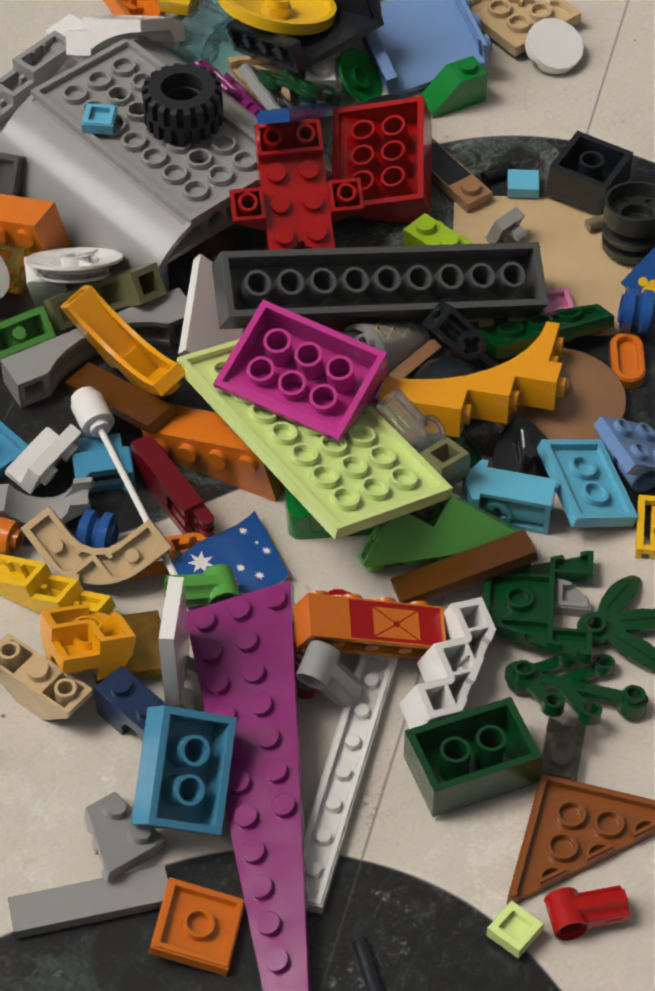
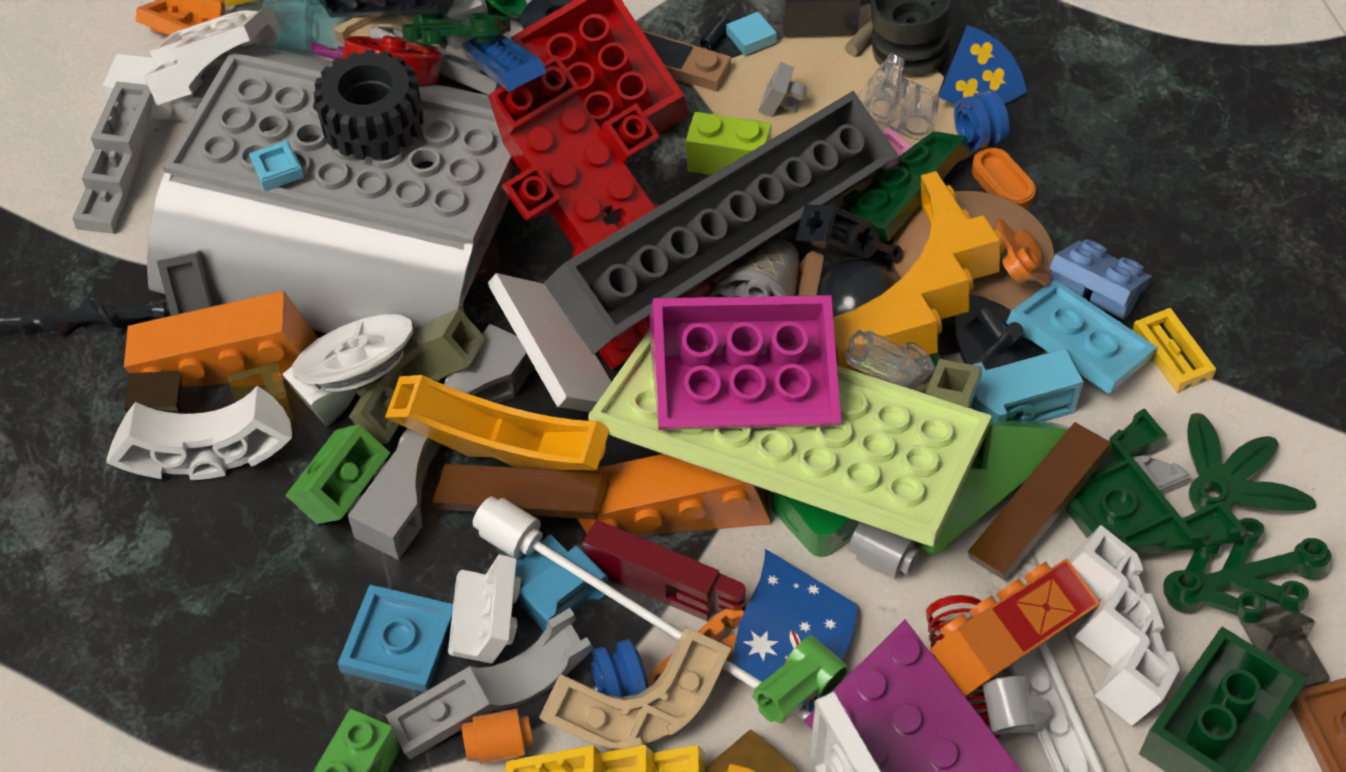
camera: 30 degrees left, 5 degrees up
(239, 88) = (422, 59): none -> red wheel
(335, 555) = (883, 550): none -> light grey brick
(580, 407) = (1023, 255): none -> orange plate
(583, 271) = (899, 101): none -> clear tile

